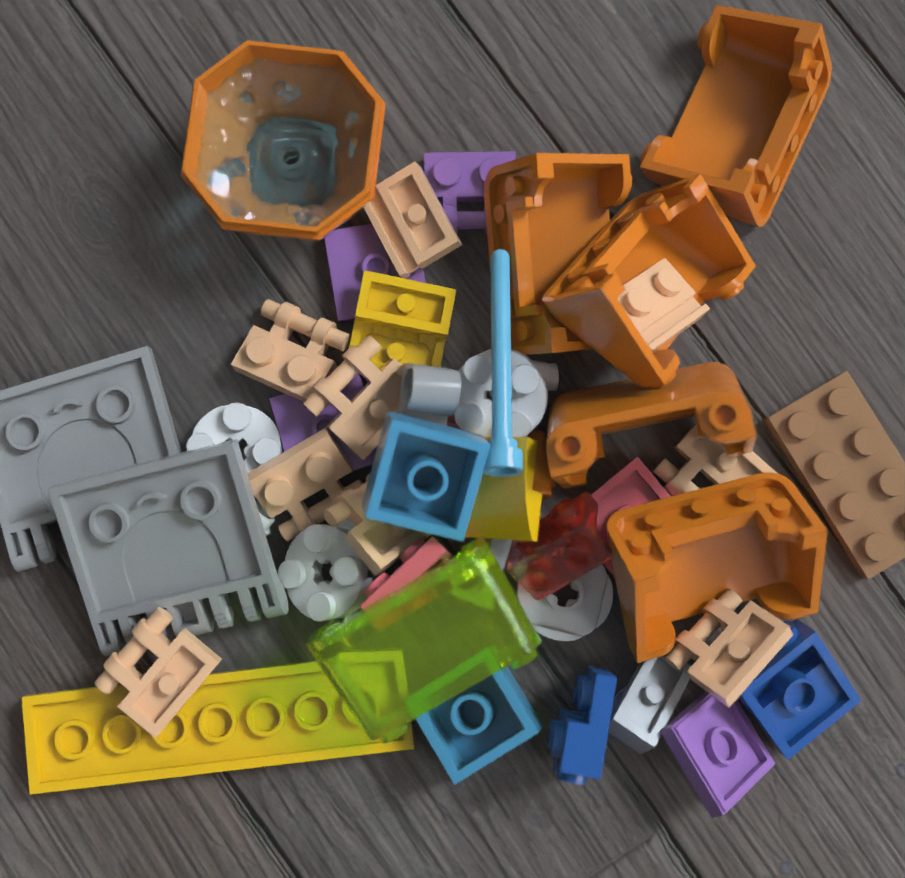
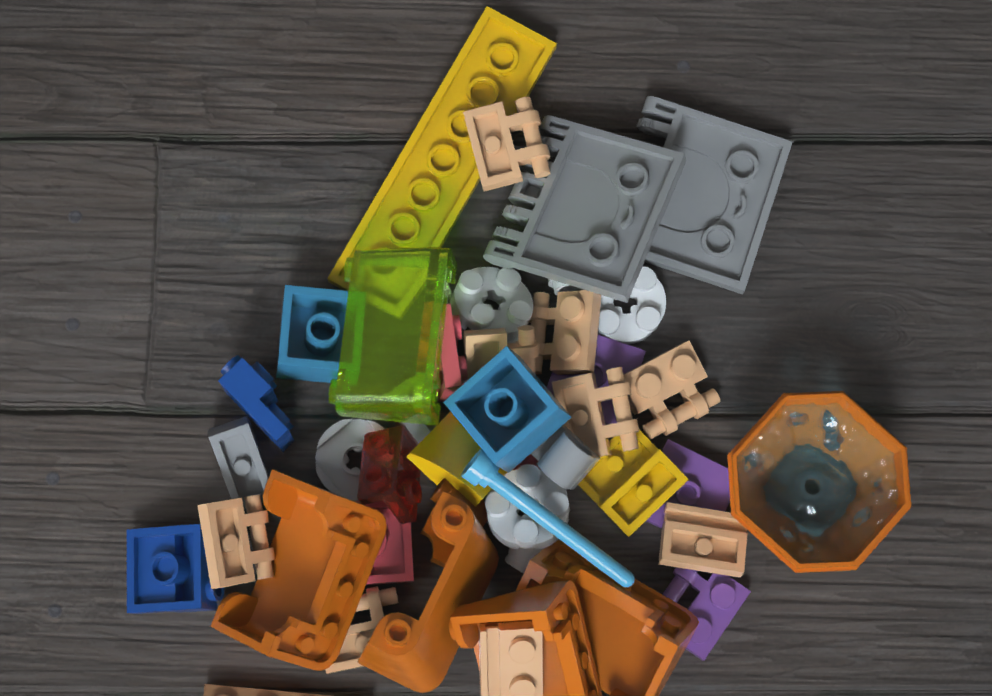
camera: 120 degrees right, 5 degrees down
(717, 751) = (170, 483): medium lavender plate -> none

